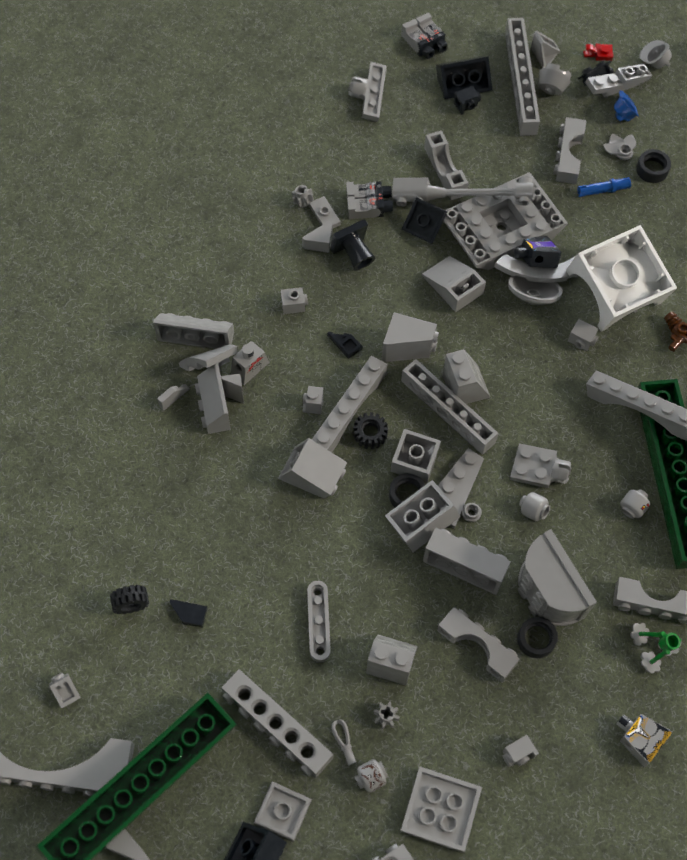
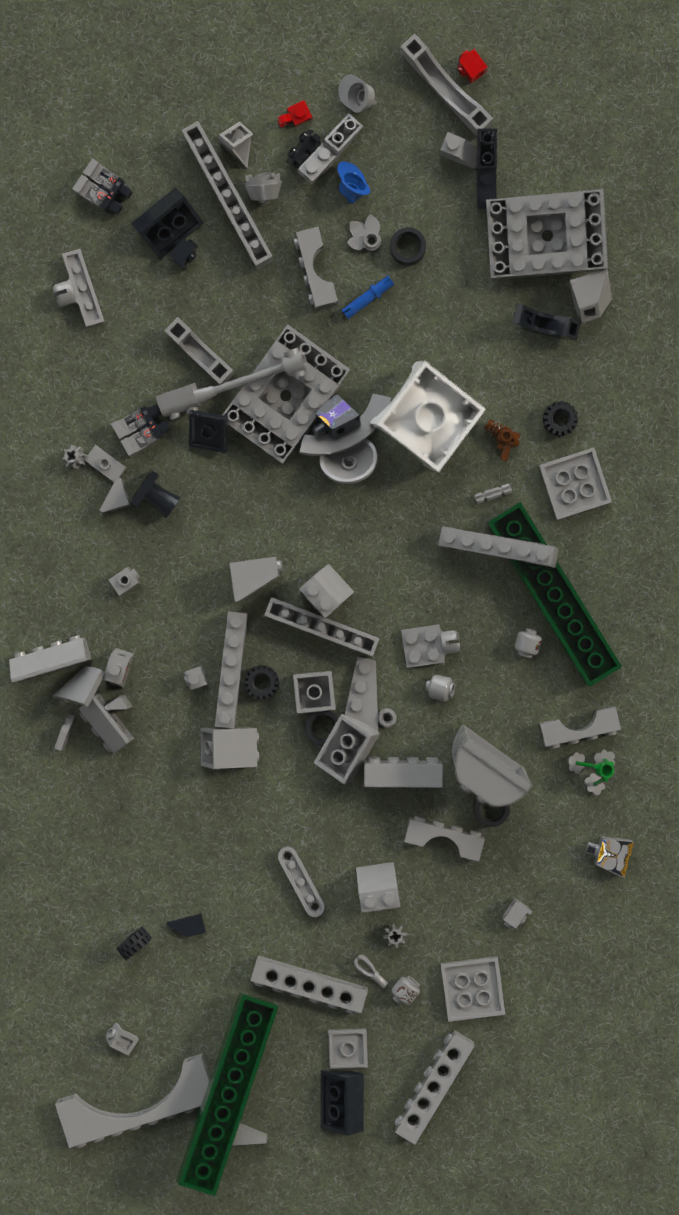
camera: 20 degrees left, 25 degrees up
(346, 343) = (195, 599): black tile -> none
(455, 282) = (266, 485): light grey slope -> none
(583, 335) = (415, 487): light grey brick -> none
(649, 371) = (493, 493): none -> light grey axle

